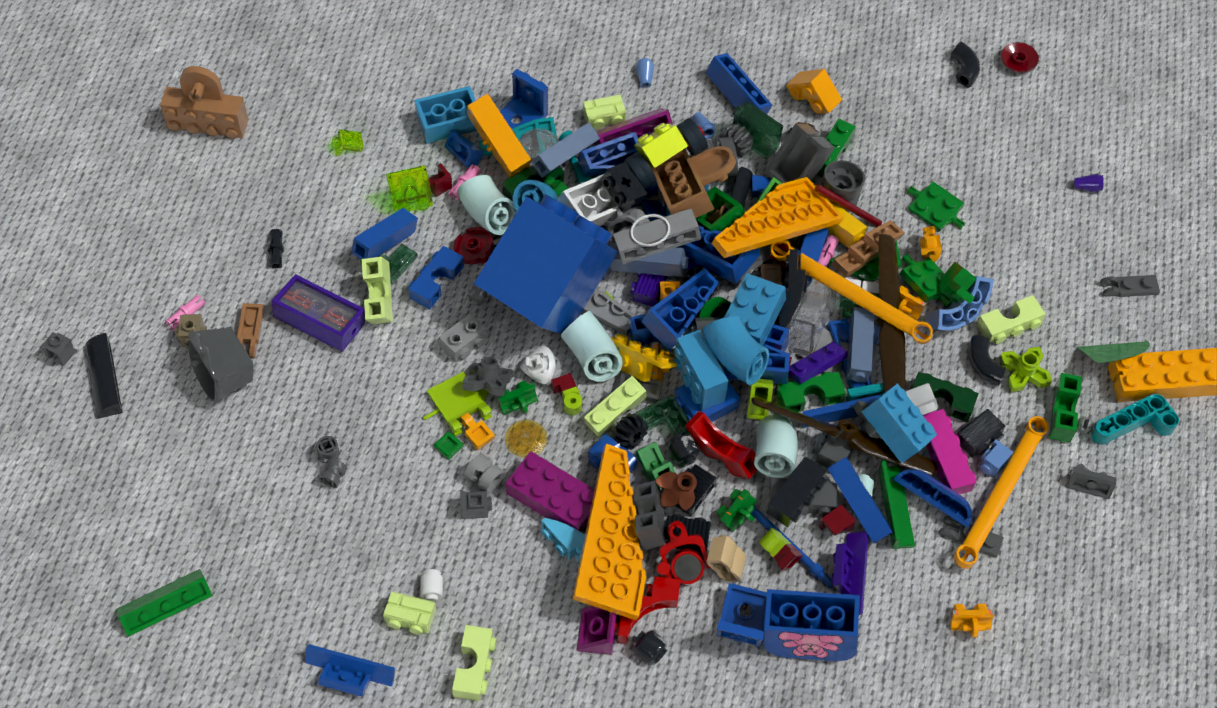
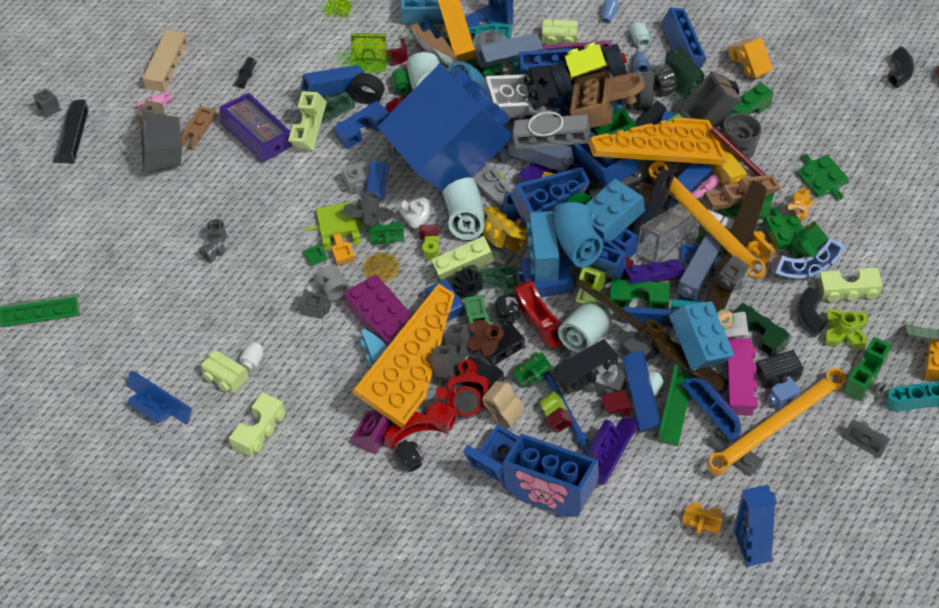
camera: 25 degrees right, 5 degrees down
(176, 258) = (165, 60): none -> tan brick
(424, 226) = (370, 81): none -> black tyre
(457, 214) = (401, 81): none -> green brick
(481, 165) = (435, 46): none -> medium nougat slope
(482, 338) = (377, 178): none -> blue tile
(689, 93) = (640, 35): none -> light aqua brick
(902, 345) = (732, 273): none -> dark grey window
(914, 394) = (726, 318): none -> tile
(1034, 614) = (756, 524): none -> blue wedge

